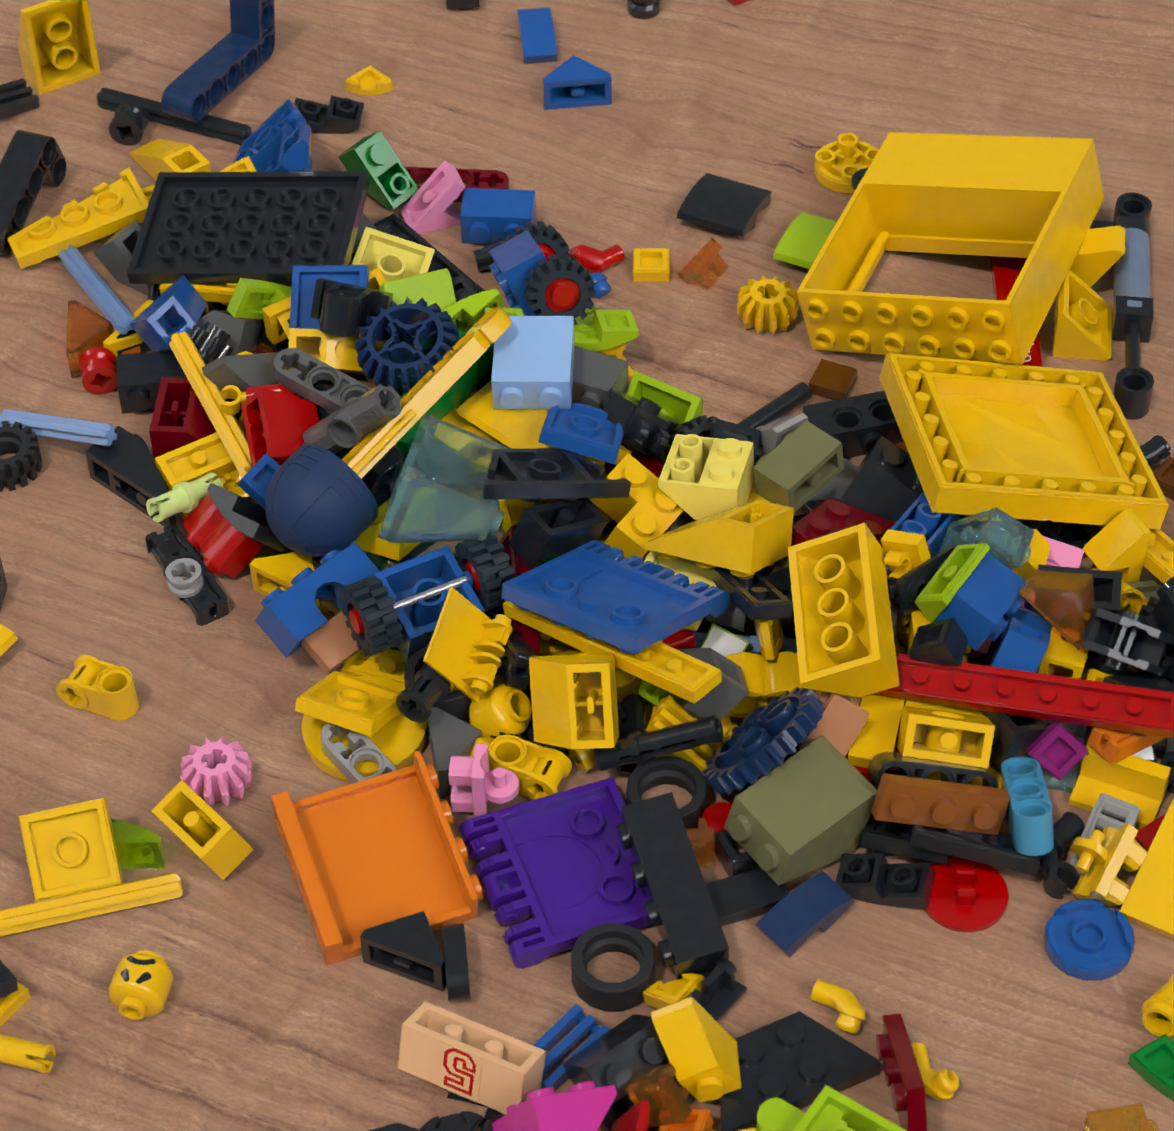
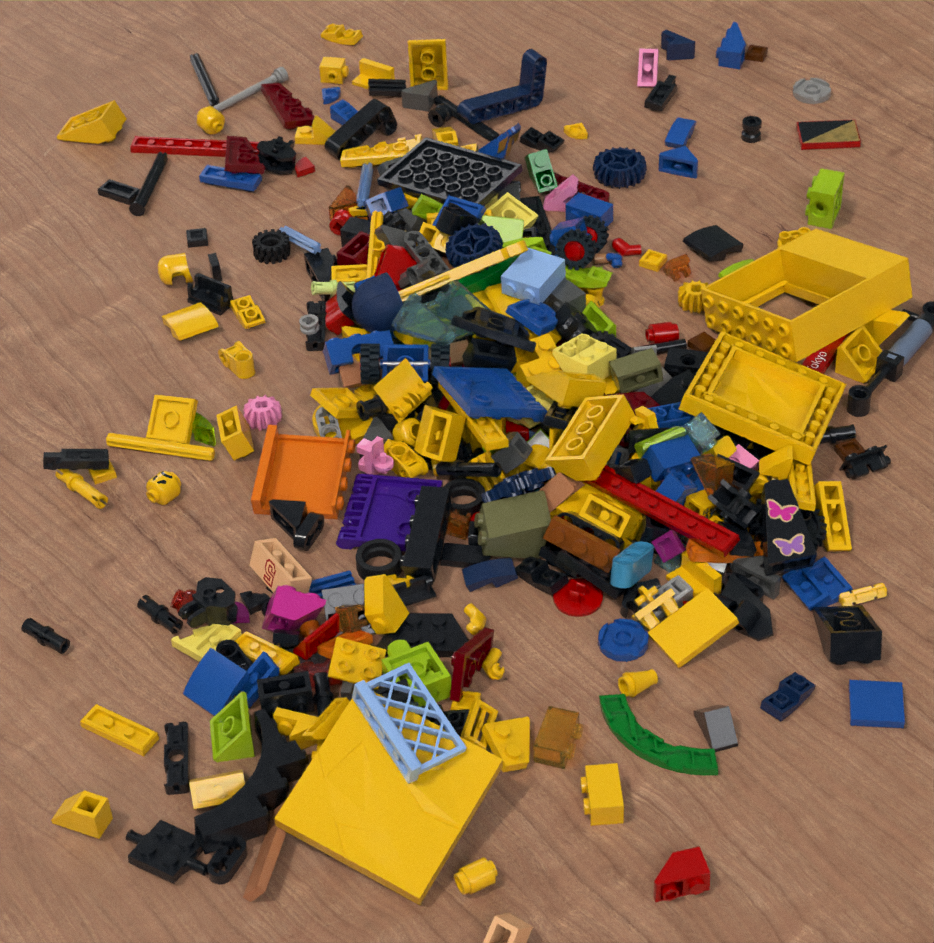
camera: 30 degrees right, 5 degrees down
(47, 595) = (247, 312): none -> yellow slope
(69, 101) = (420, 96): none -> dark grey slope
(489, 123) = (619, 167): none -> dark blue gear
(762, 385) = (662, 332): none -> red brick
(846, 76) = (825, 198): none -> lime brick

